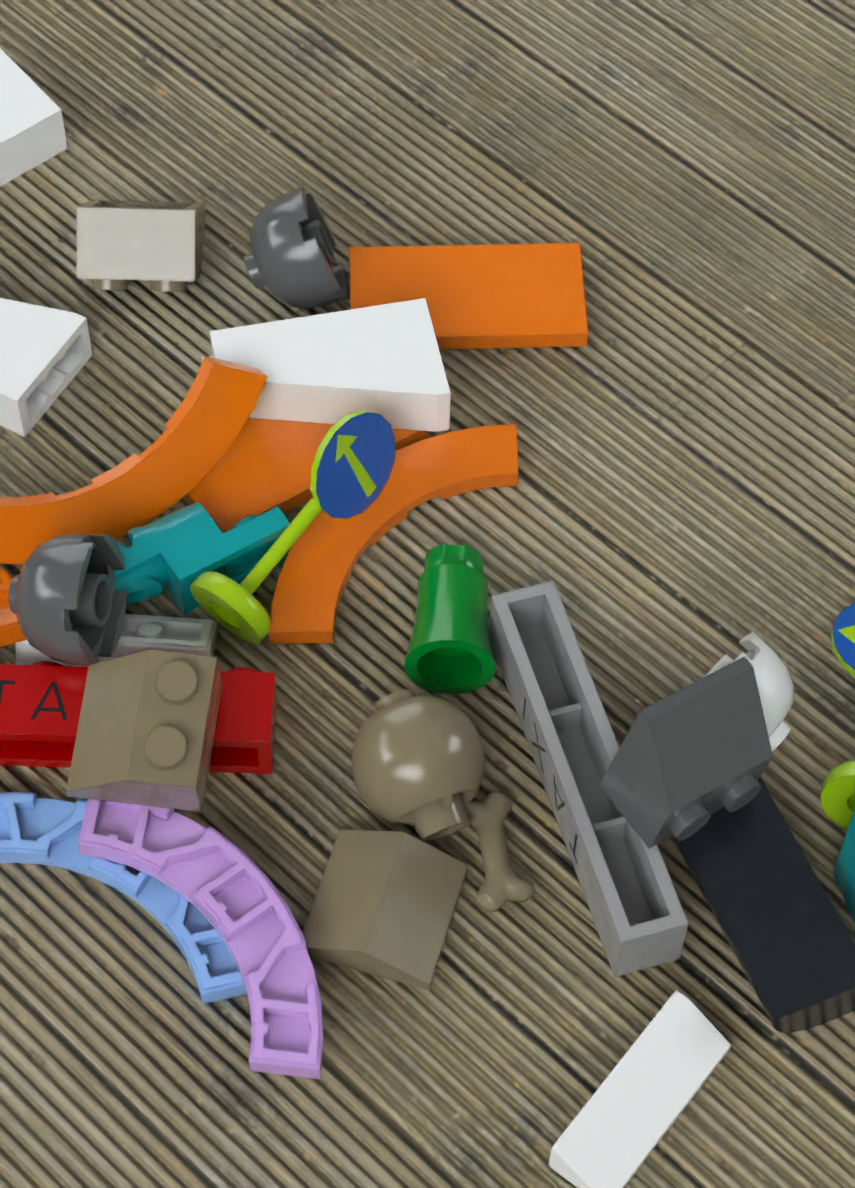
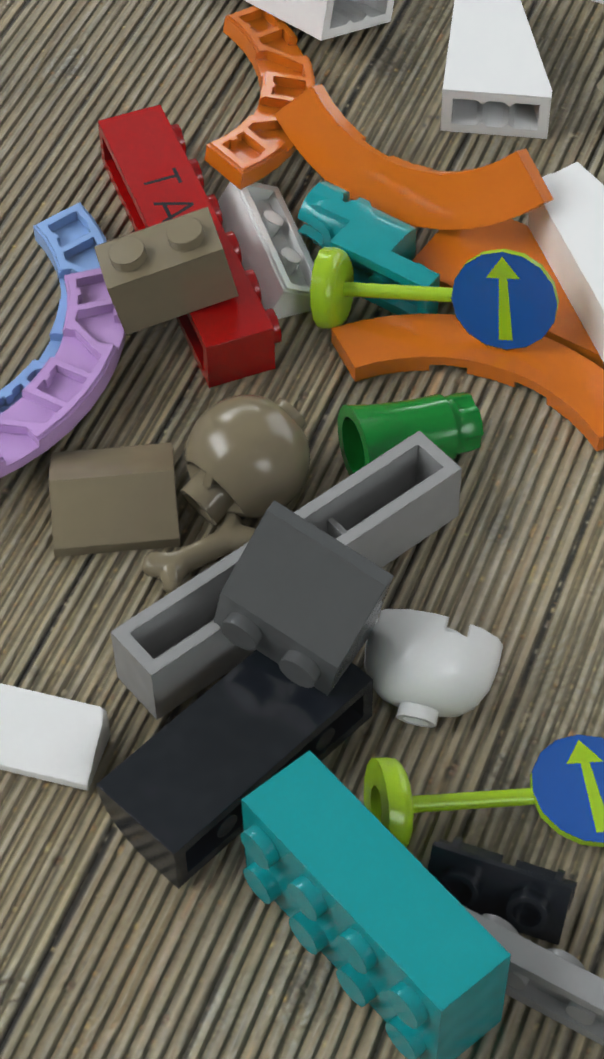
camera: 70 degrees right, 5 degrees down
(70, 598) = (260, 175): dark grey cylinder -> none

